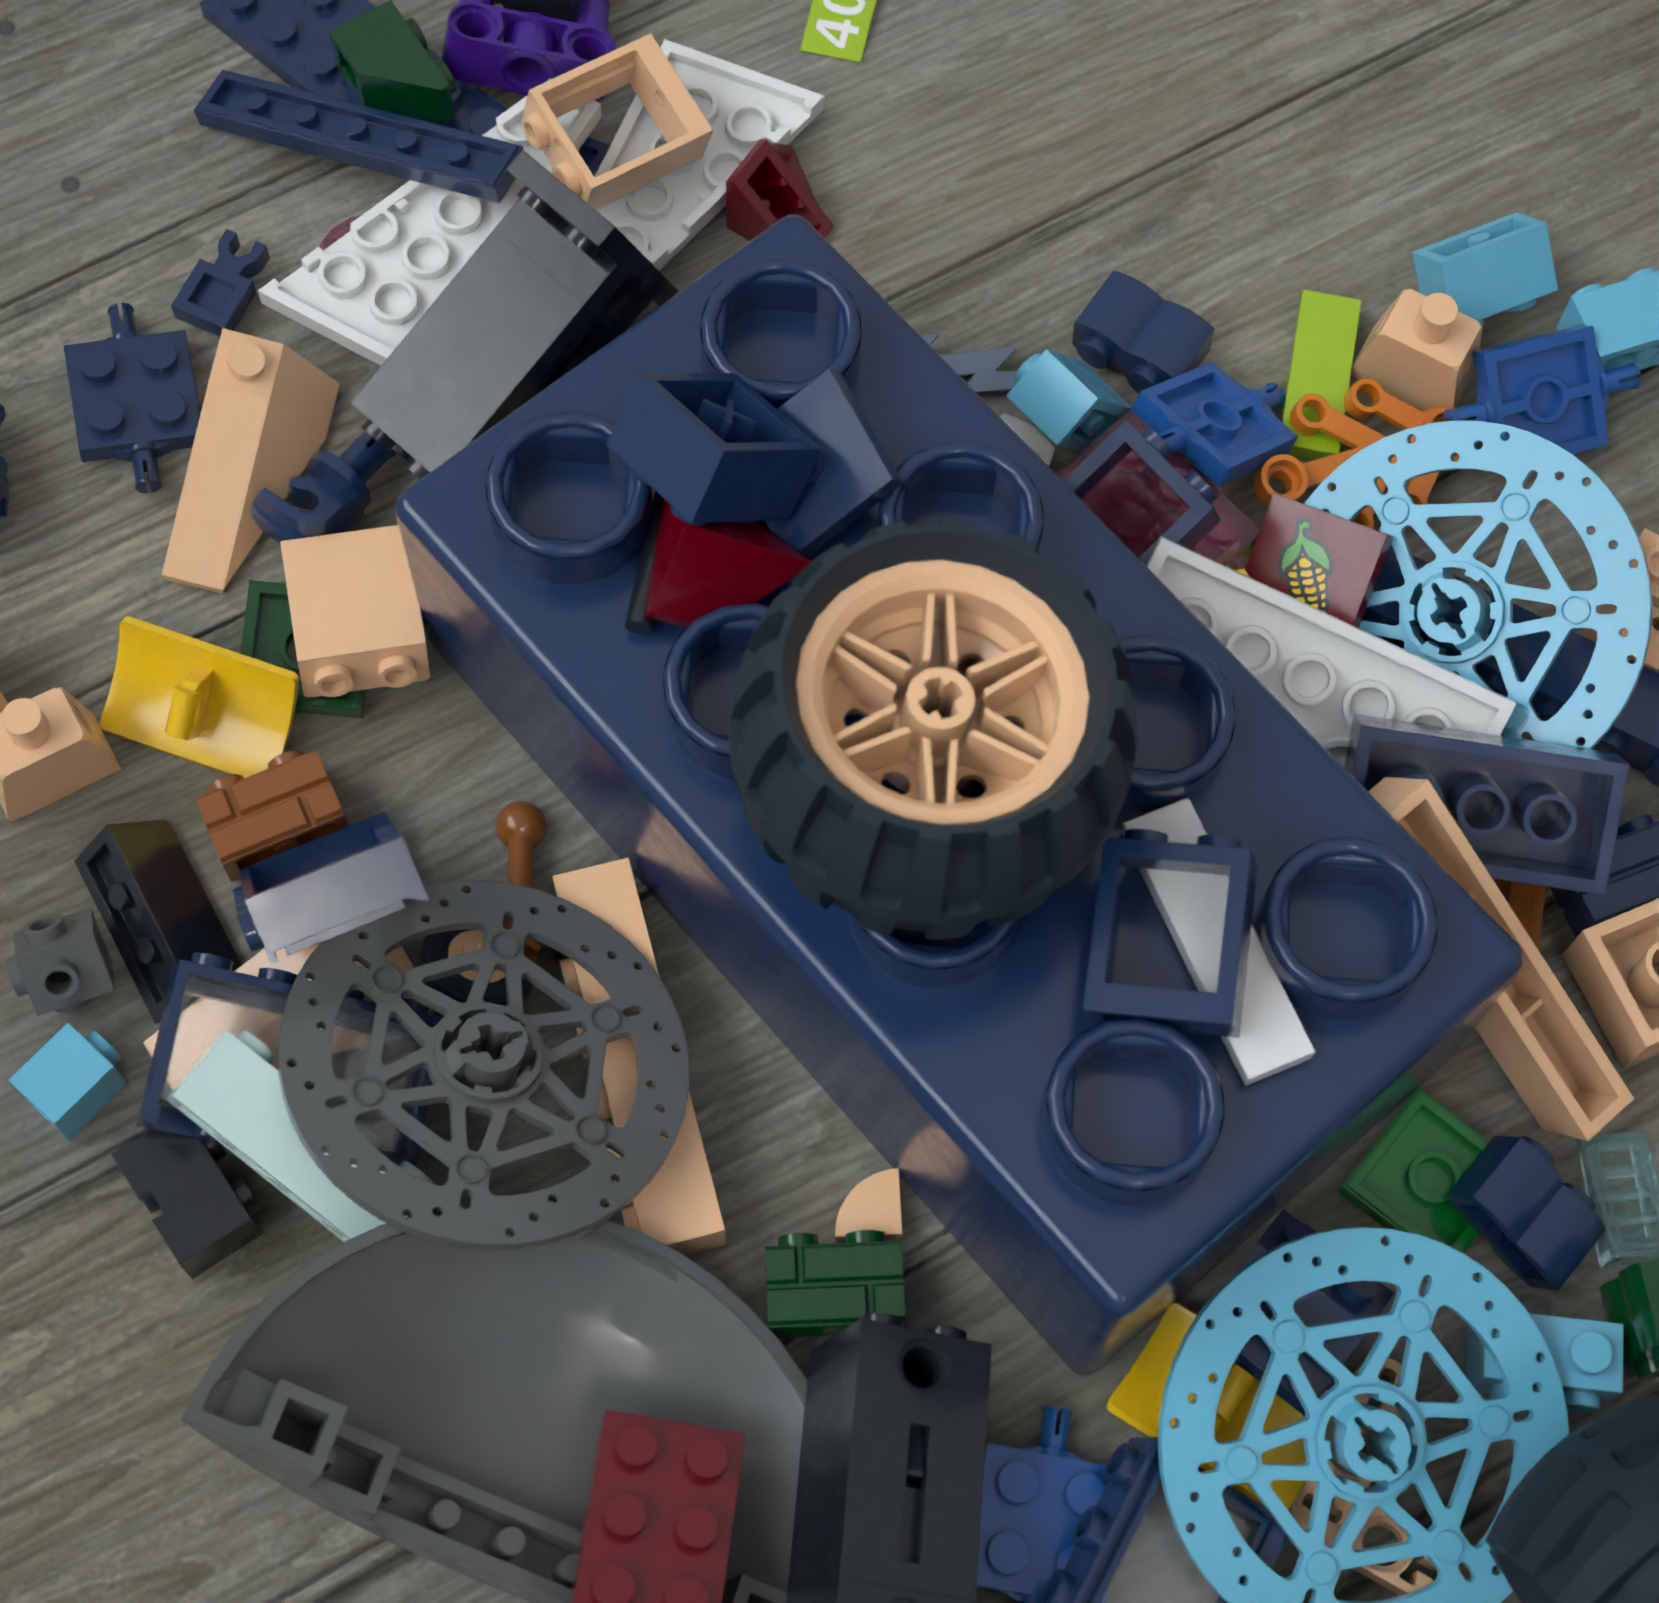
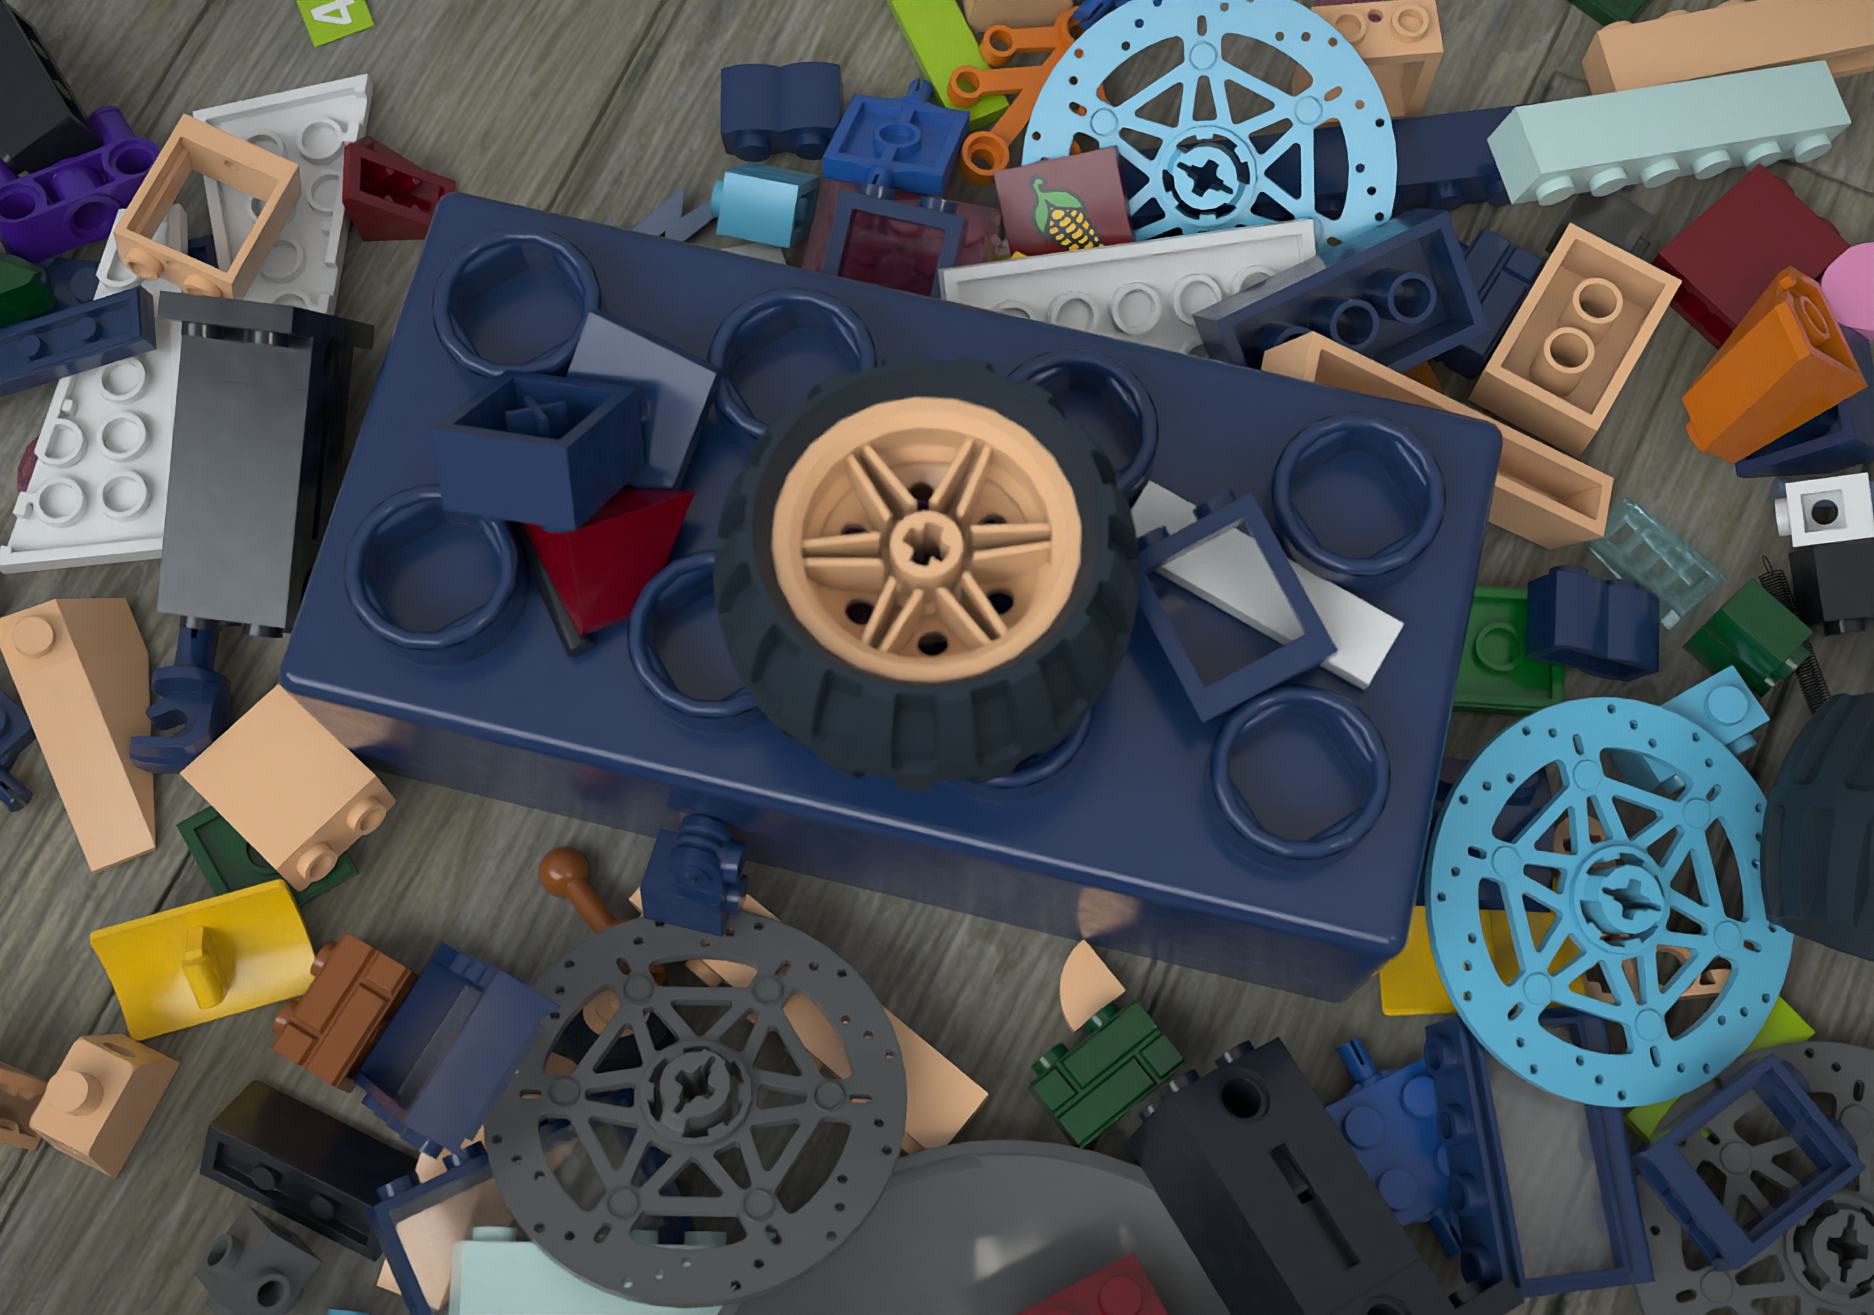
camera: 30 degrees left, 5 degrees up
(613, 888) = (695, 876): none -> dark blue brick

